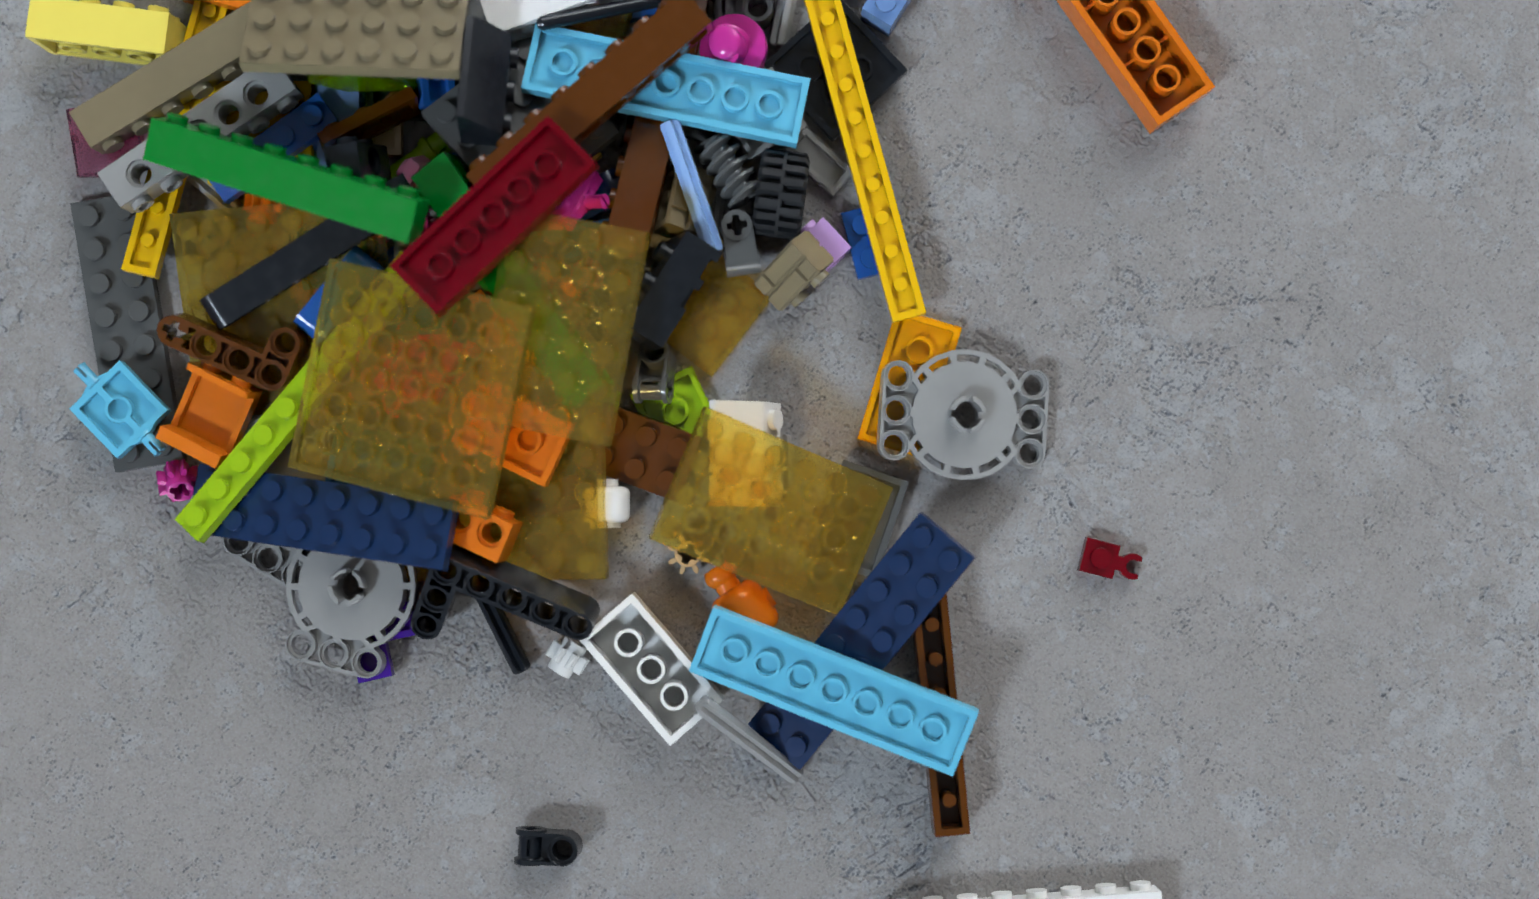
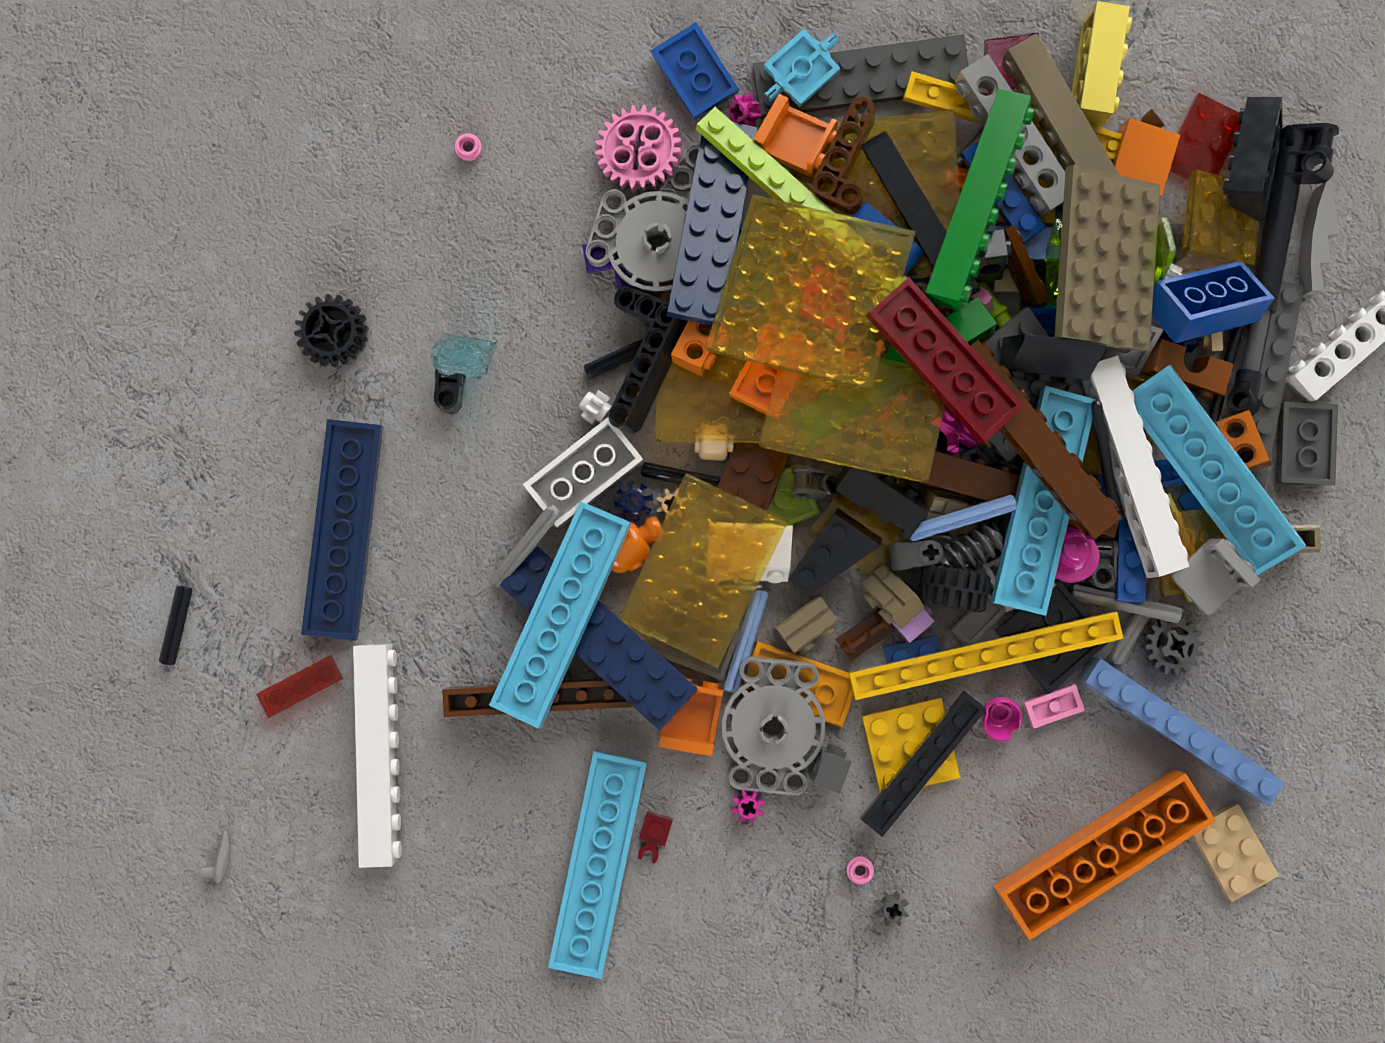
camera: 90 degrees right, 0 degrees up
(127, 546) = (694, 71): none -> blue plate
(224, 836) = (464, 140): none -> bright pink plate
(231, 583) = (662, 150): none -> bright pink gear
(507, 830) = (462, 355): none -> clear light blue slope
(650, 552) = (674, 474): none -> black axle
(696, 605) = (631, 509): none -> clear blue piece
(740, 346) = (833, 551): none -> black wedge
(834, 377) = (807, 624): none -> dark tan brick
(844, 303) = (864, 635): none -> reddish brown hinge
(855, 452) = (746, 639): none -> light blue axle
(923, 64) = (1053, 706): none -> bright pink plate
(941, 129) = (1001, 718): none -> dark pink hair
(964, 512) = (696, 723): none -> orange panel
(981, 241) = (898, 732): none -> yellow plate
(1002, 225) = (923, 763): none -> black plate
(1013, 341) = (830, 768): none -> dark grey brick
(1074, 439) = (749, 814): none -> dark pink gear
(1146, 630) = (597, 864): none -> medium azure plate
(1149, 299) = (863, 878): none -> bright pink plate
(1193, 254) = (894, 915): none -> dark grey gear

